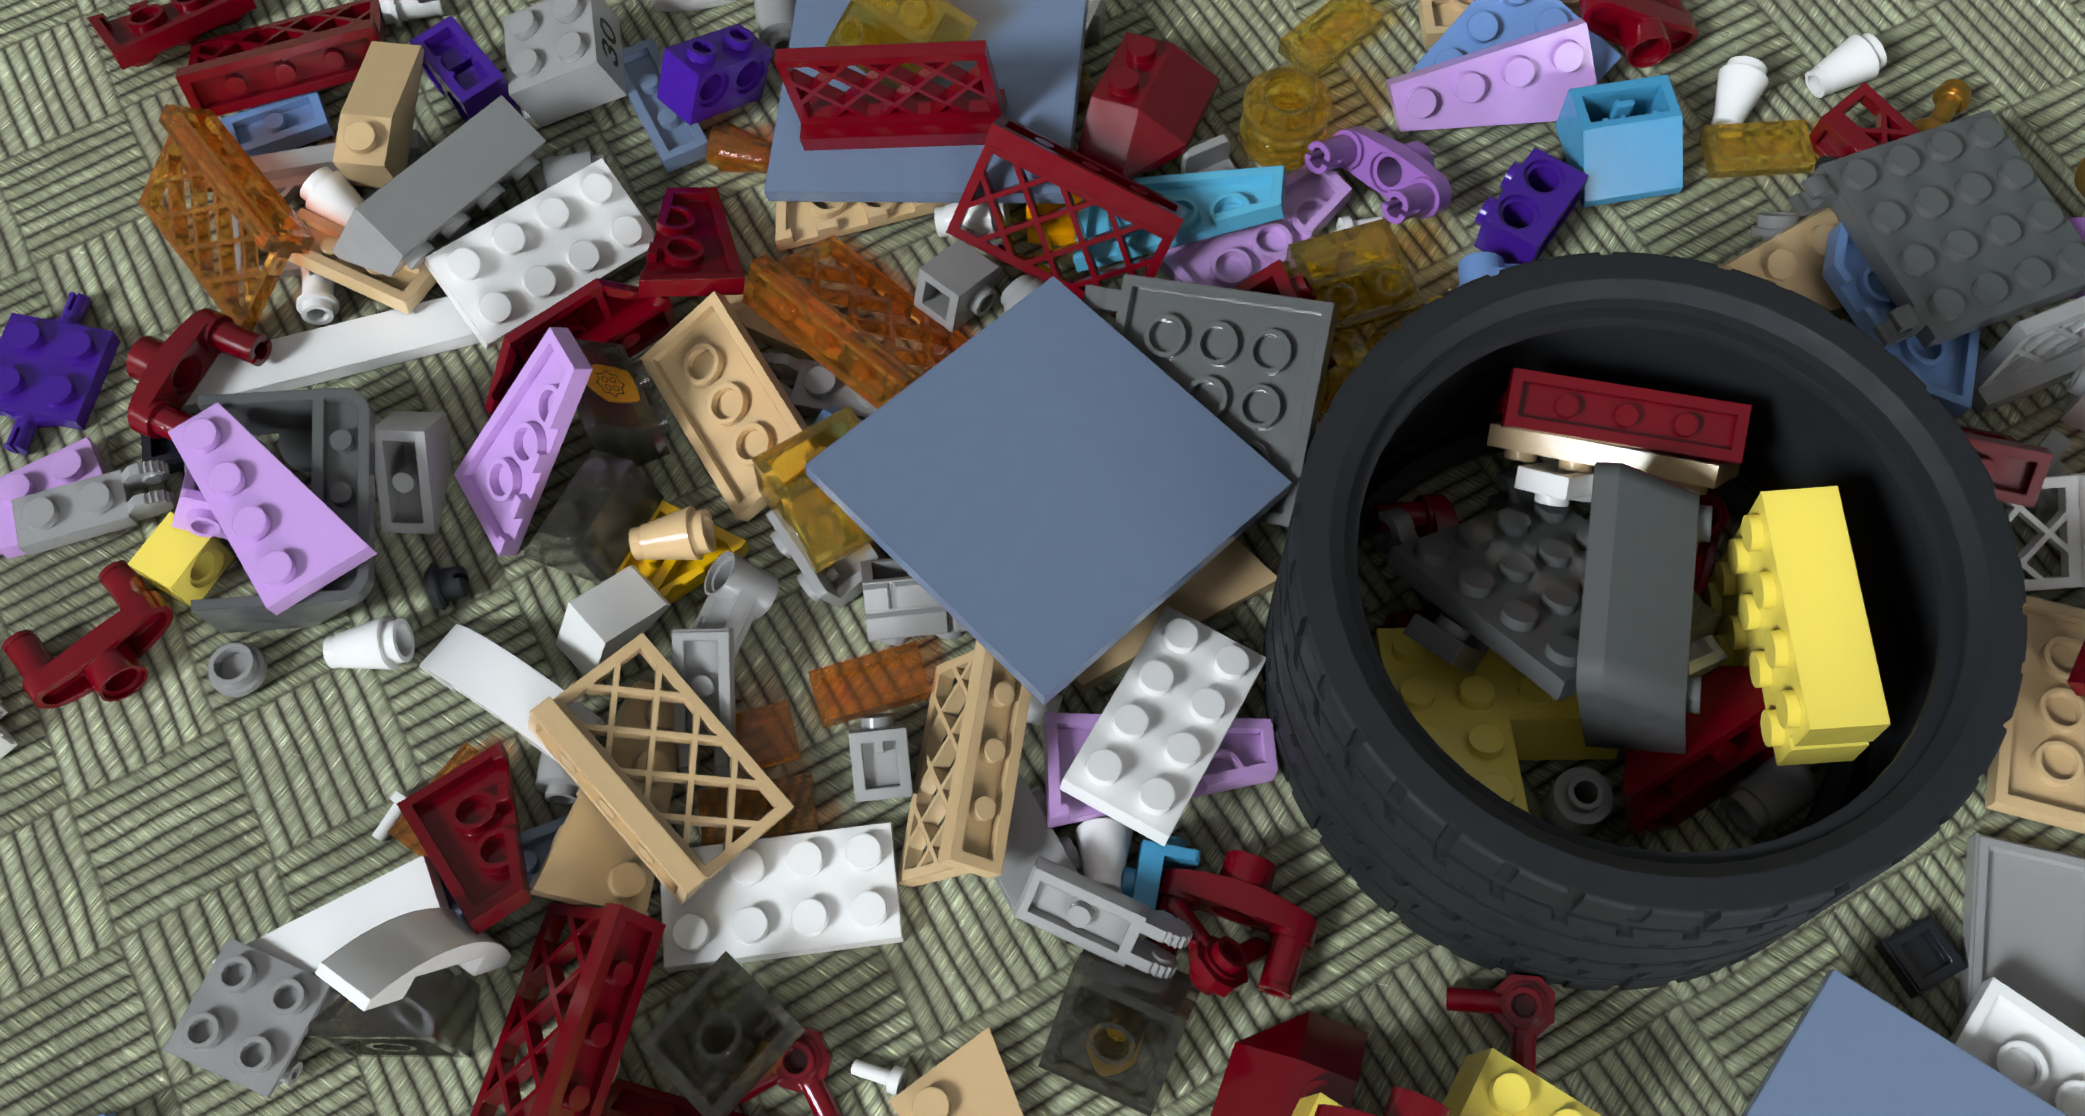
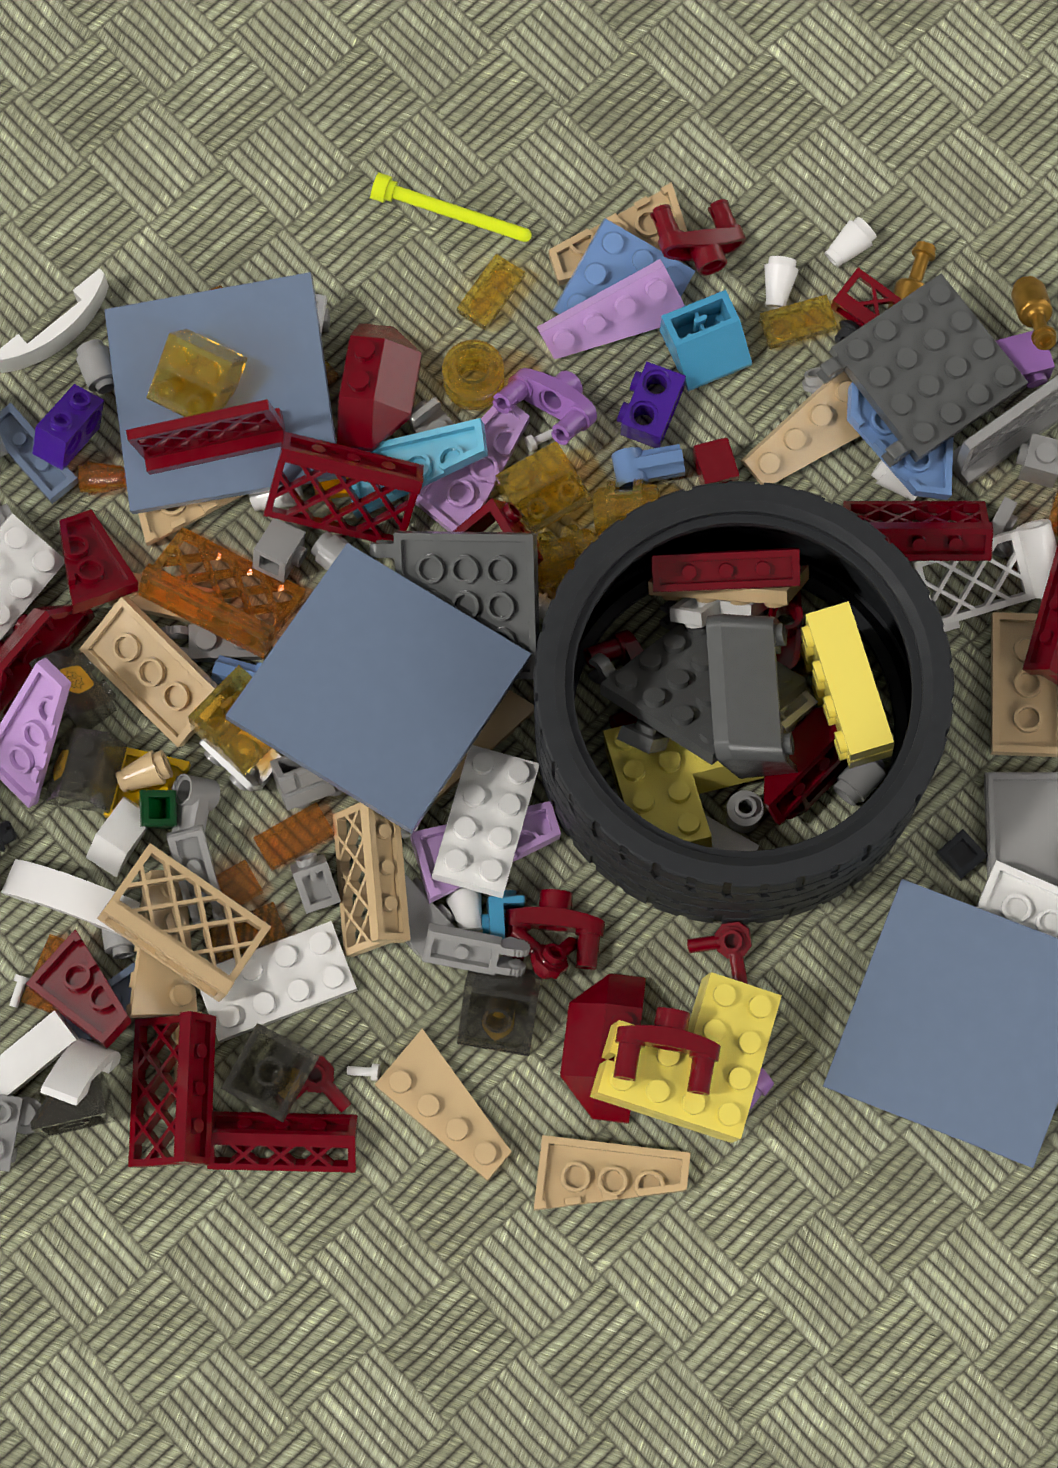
camera: 15 degrees left, 10 degrees up
(675, 592) = (158, 809): none -> dark green slope

